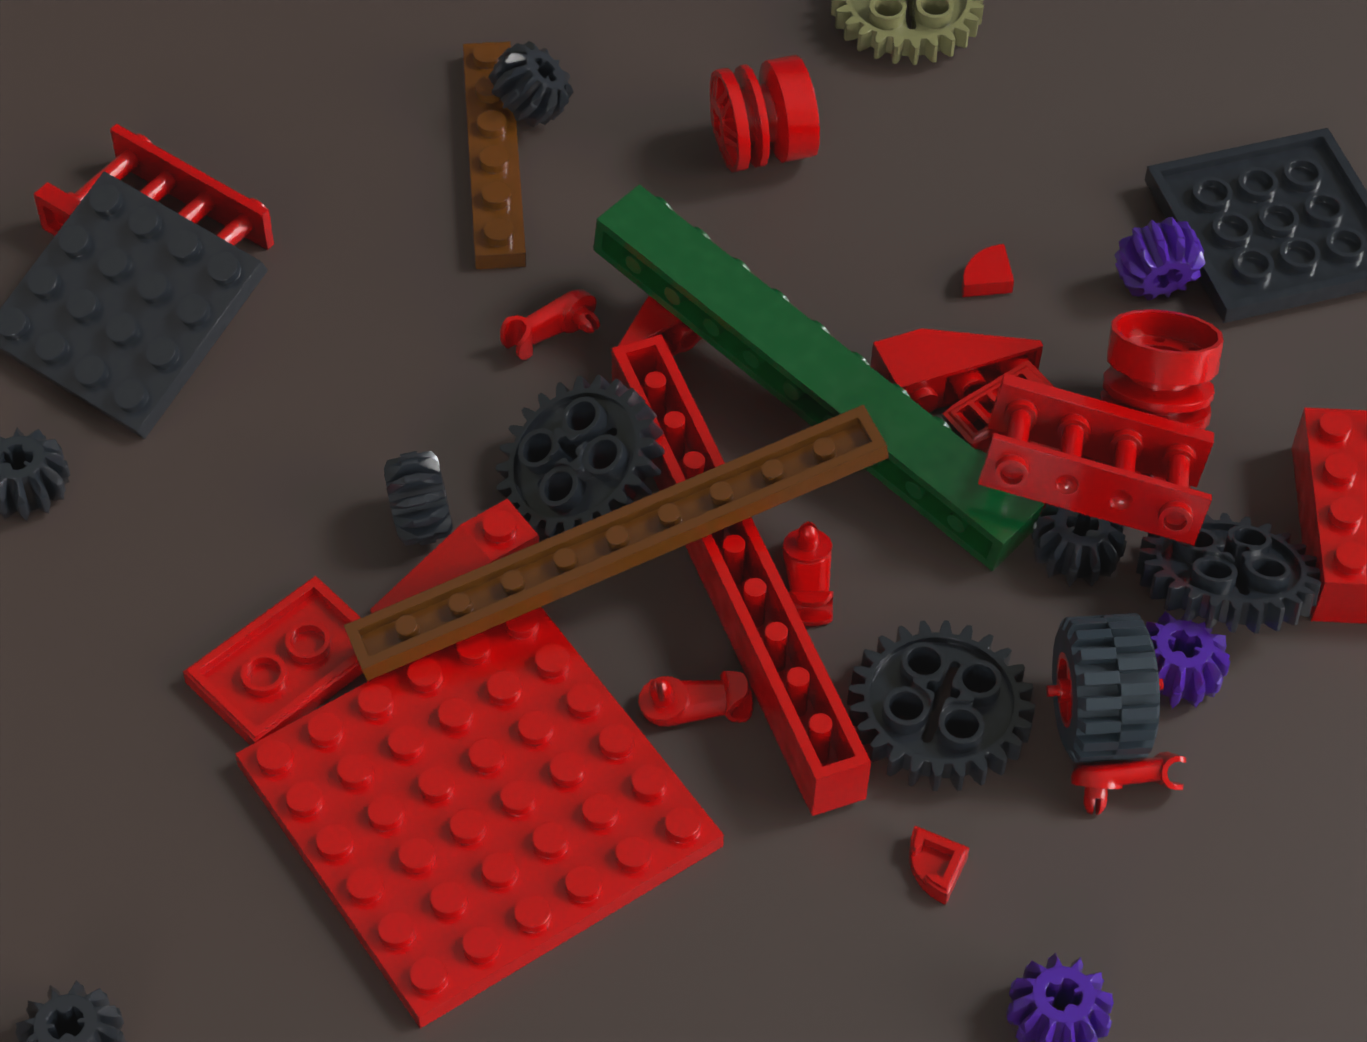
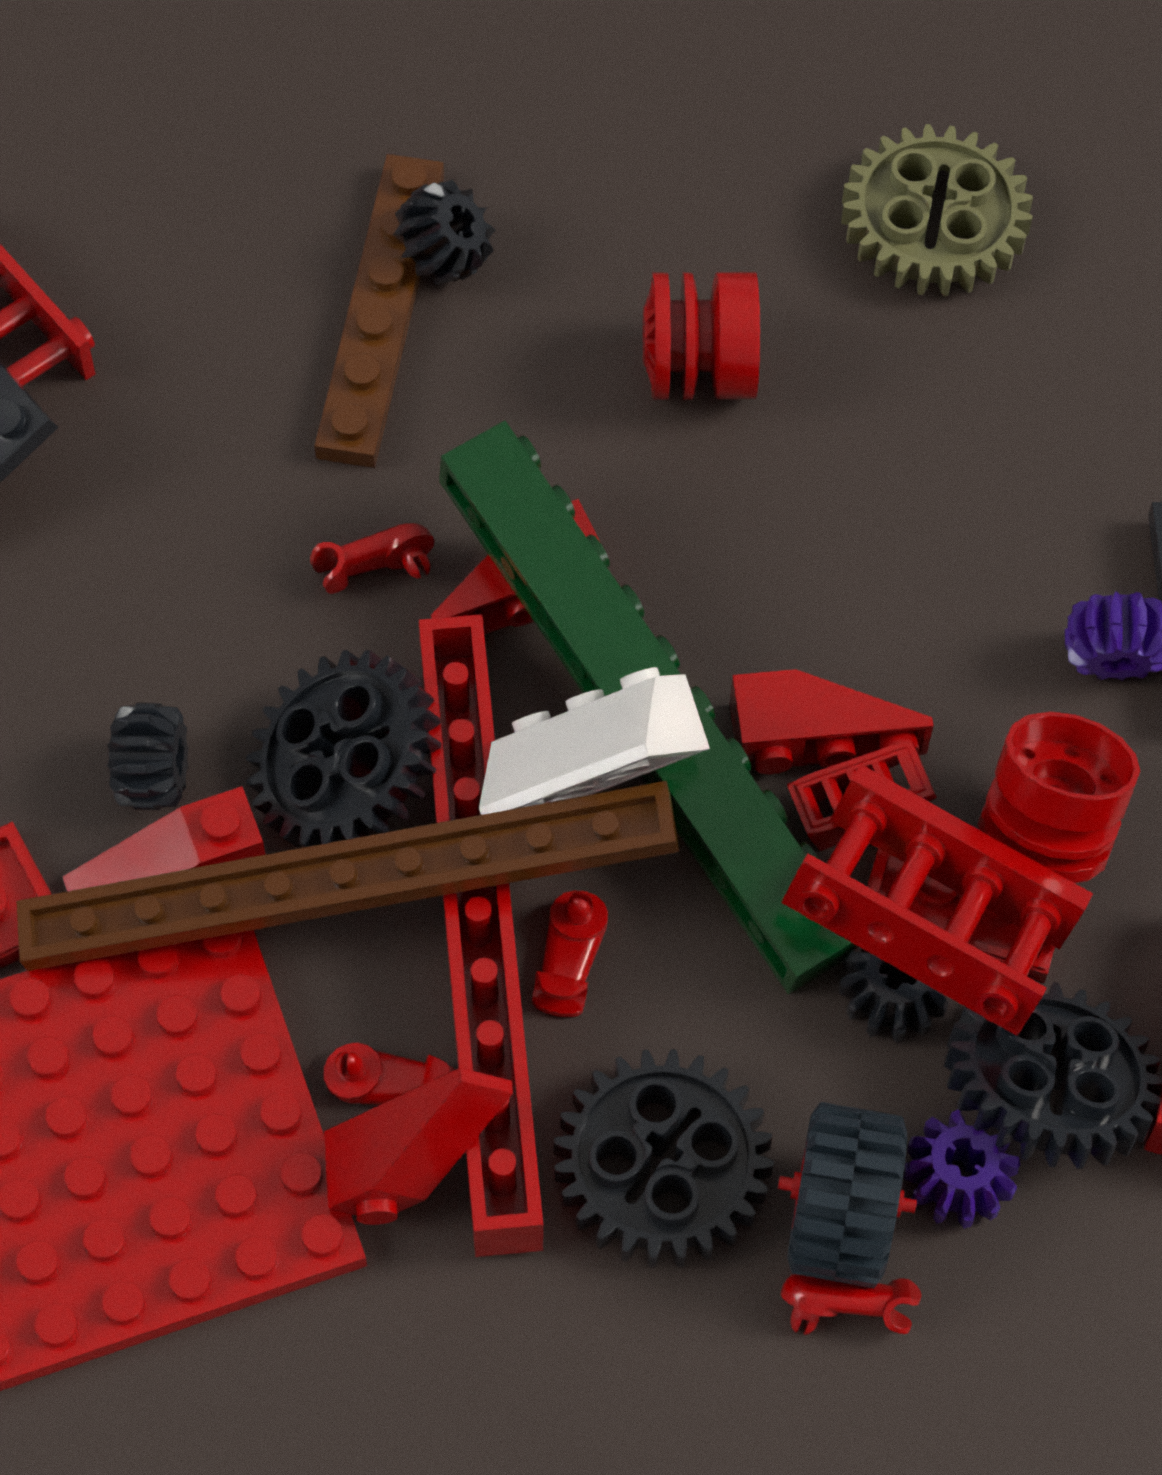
camera: 15 degrees right, 10 degrees up
(737, 729) = (408, 1144): none -> red slope
(792, 394) = (594, 743): none -> white slope
(936, 862) = (597, 1350): red tile -> none
(988, 273) = (912, 601): red tile -> none

